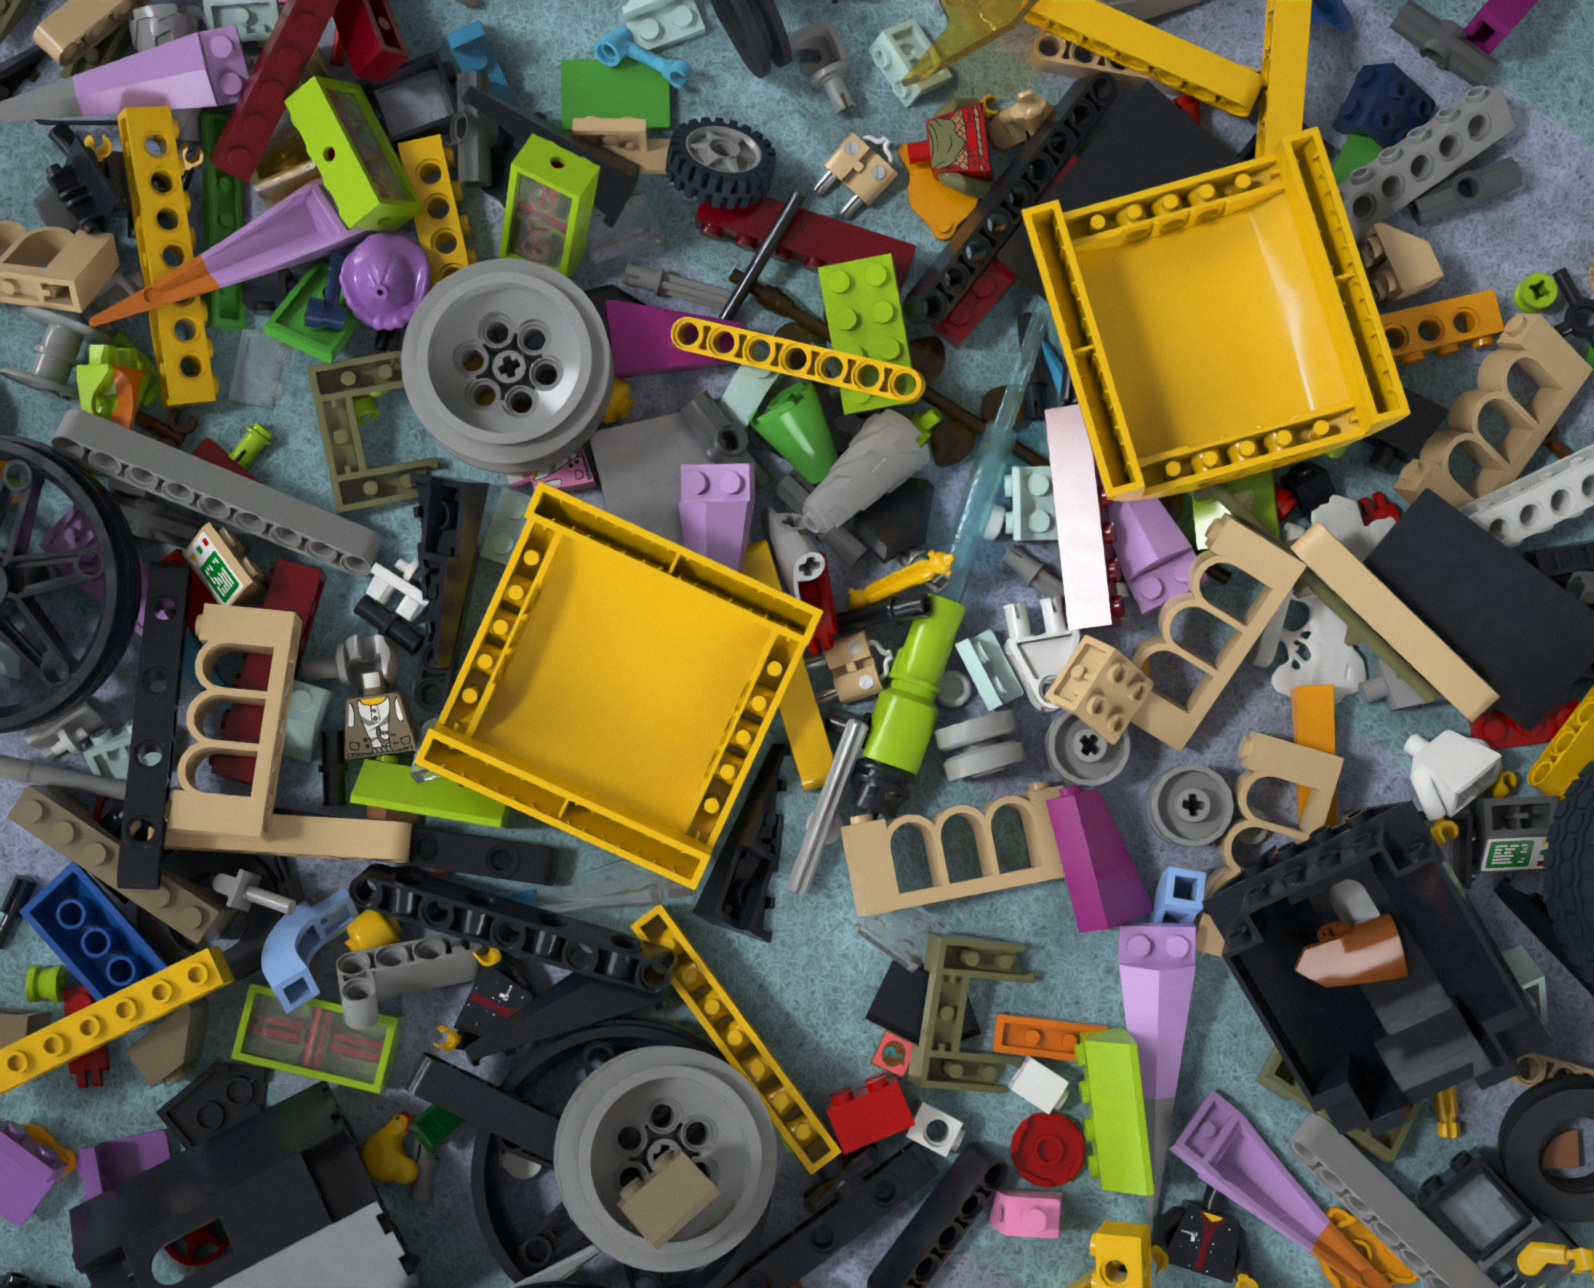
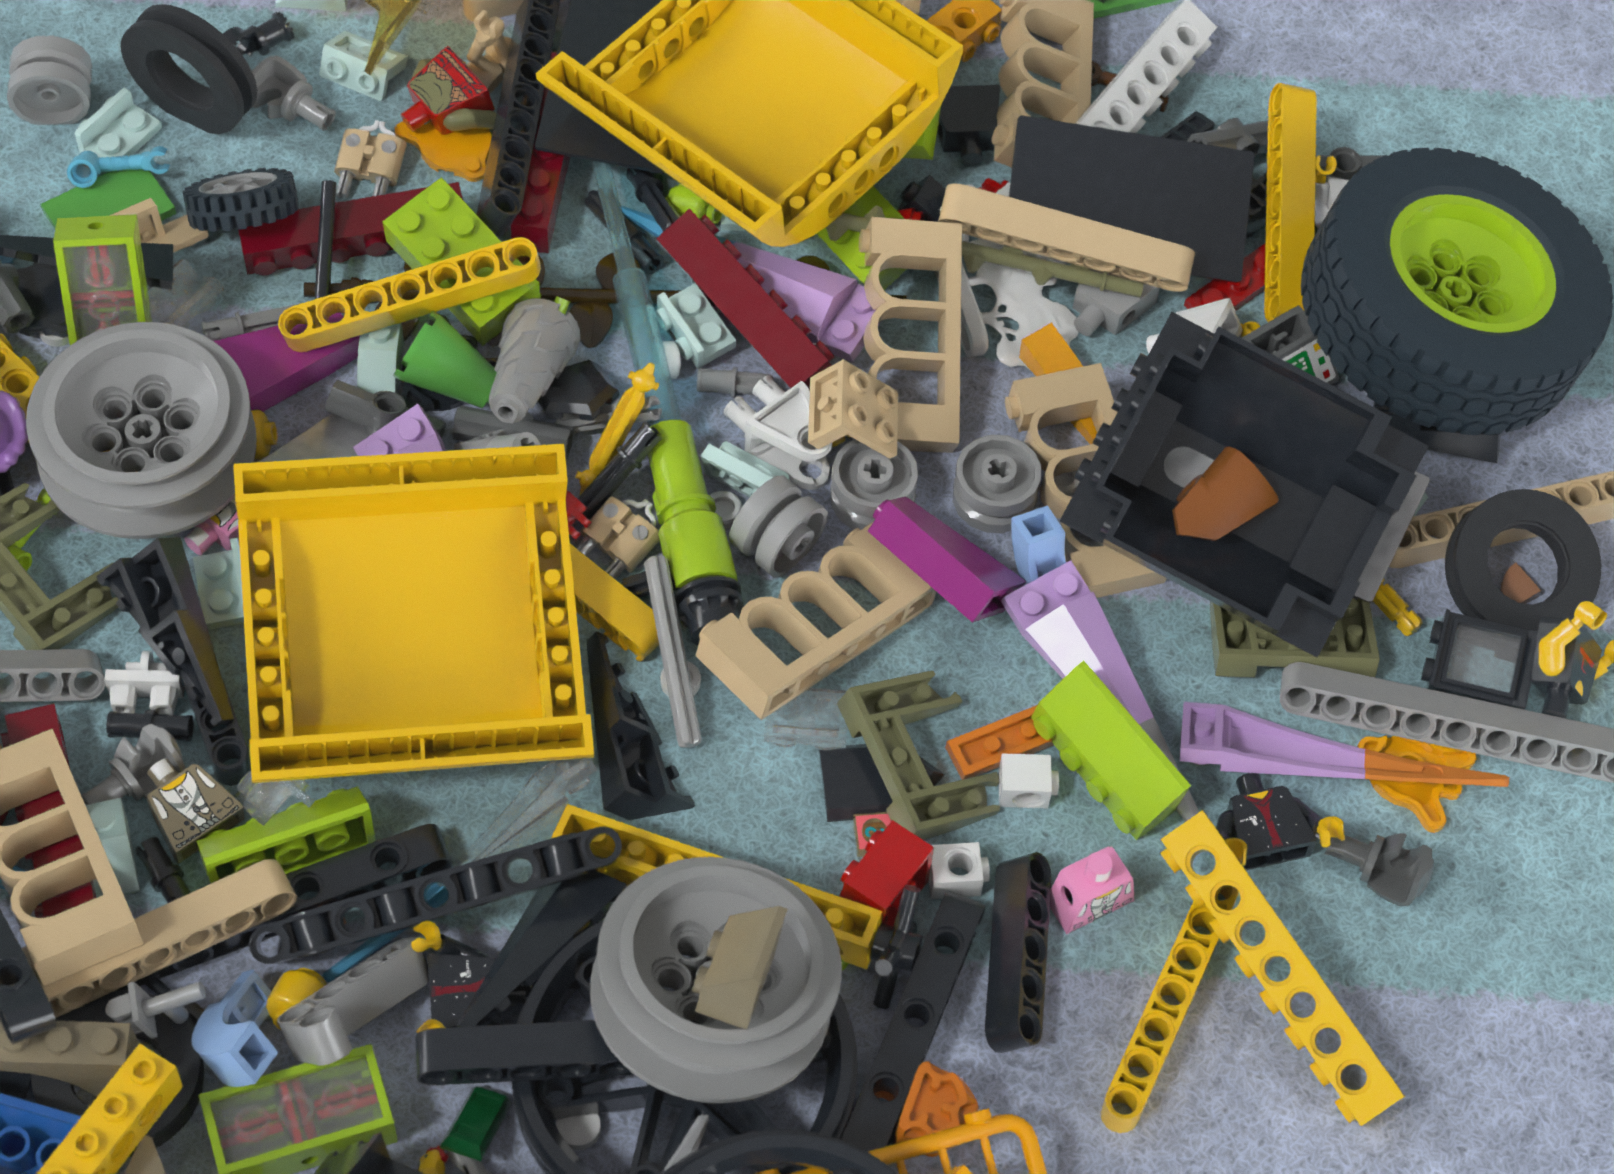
camera: 30 degrees left, 25 degrees down
(1038, 1140) = (1064, 845): red tile -> none

